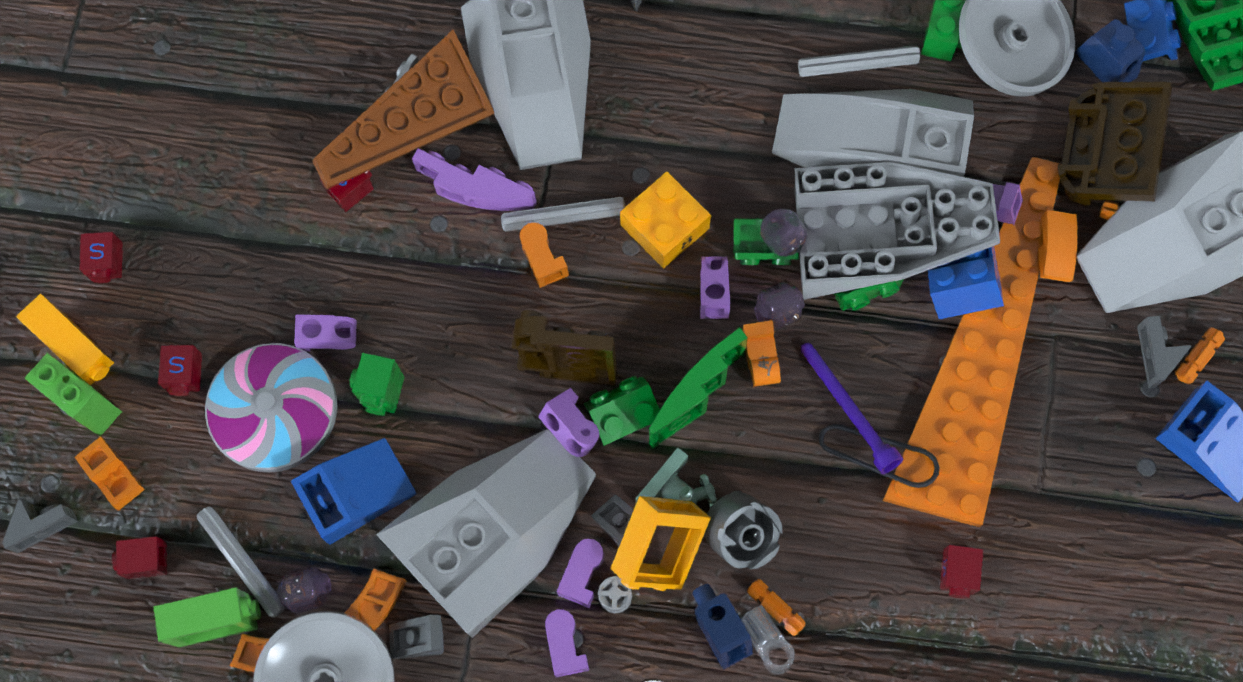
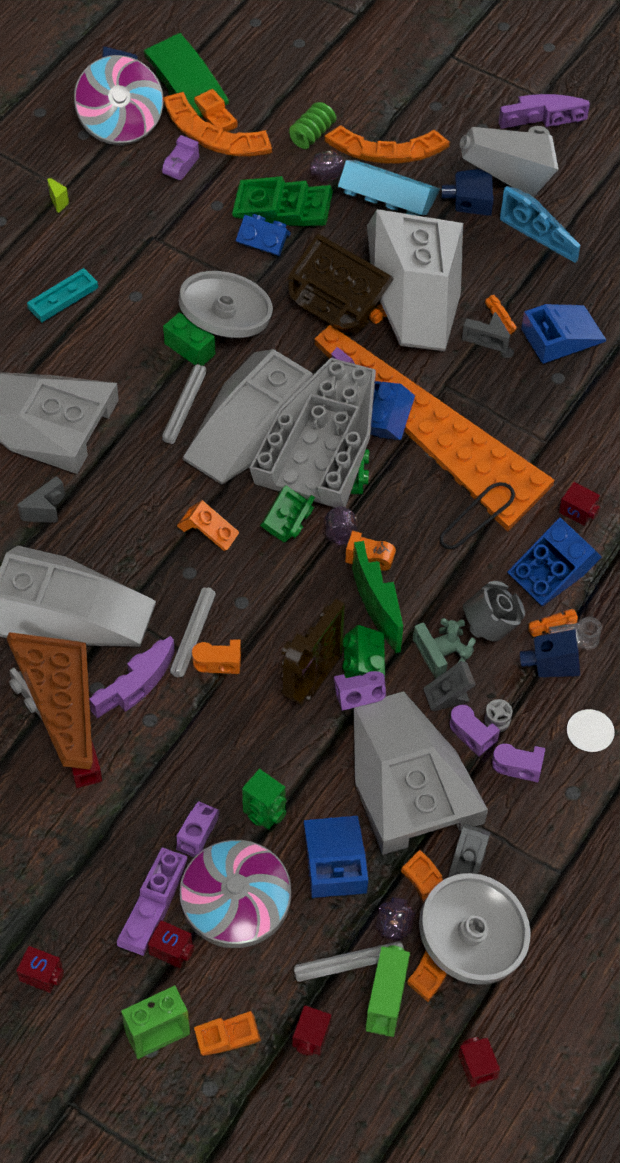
camera: 70 degrees left, 15 degrees down
(28, 528) = (242, 1109): dark grey slope -> none
(65, 339) = (97, 1018): light orange slope -> none
(219, 329) = (153, 902): none -> medium lavender slope
(665, 219) = (237, 566): light orange brick -> none
(689, 529) = (481, 660): light orange window -> none
(705, 166) = (210, 524): none -> orange bracket
(714, 288) = (305, 559): medium lavender leg -> none
(783, 232) = (294, 492): head -> none
(861, 575) = (554, 562): none -> blue slope
(885, 457) = (483, 507): dark purple piece -> none
(1059, 249) = (391, 351): orange slope -> none
(1113, 53) = (269, 260): dark blue torso -> none

